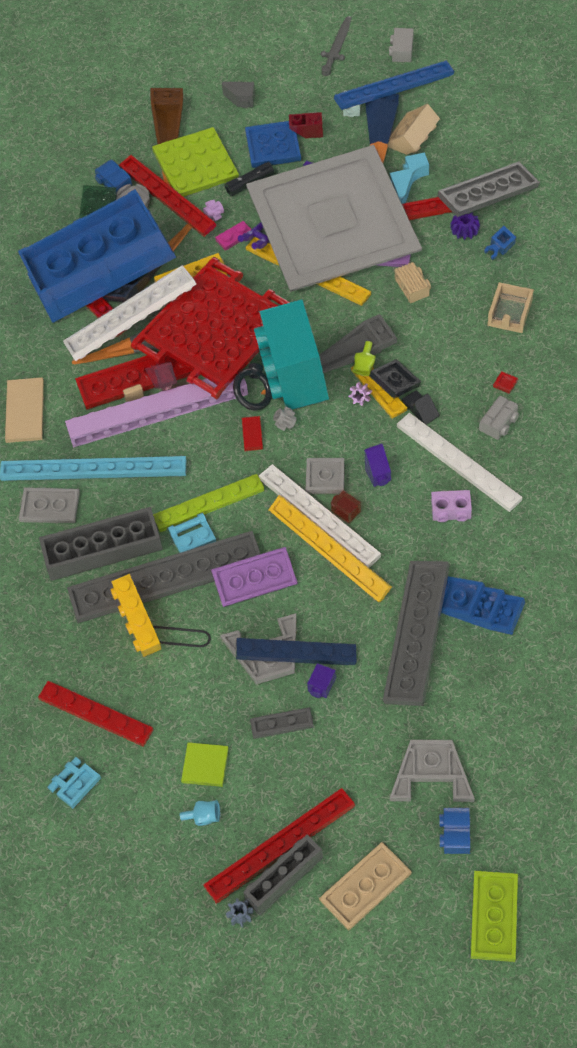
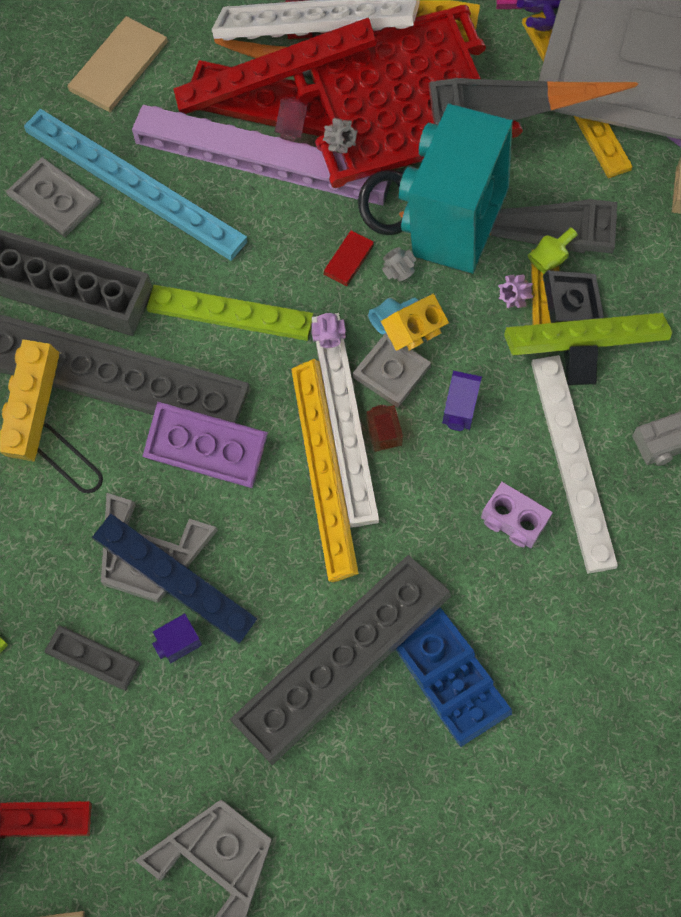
camera: 30 degrees right, 10 degrees up
(130, 353) = (275, 66): none -> red plate
(133, 393) = (248, 120): tan tile -> none
(195, 538) = (179, 348): medium azure plate -> none
(203, 367) = (340, 135): none -> light grey gear
(276, 474) = (328, 330): none -> lavender gear
(282, 291) = (515, 98): none -> dark grey plate
(301, 447) = (384, 310): none -> medium azure piece
(321, 442) = (414, 322): none -> yellow brick
(422, 386) = (590, 332): none -> lime plate

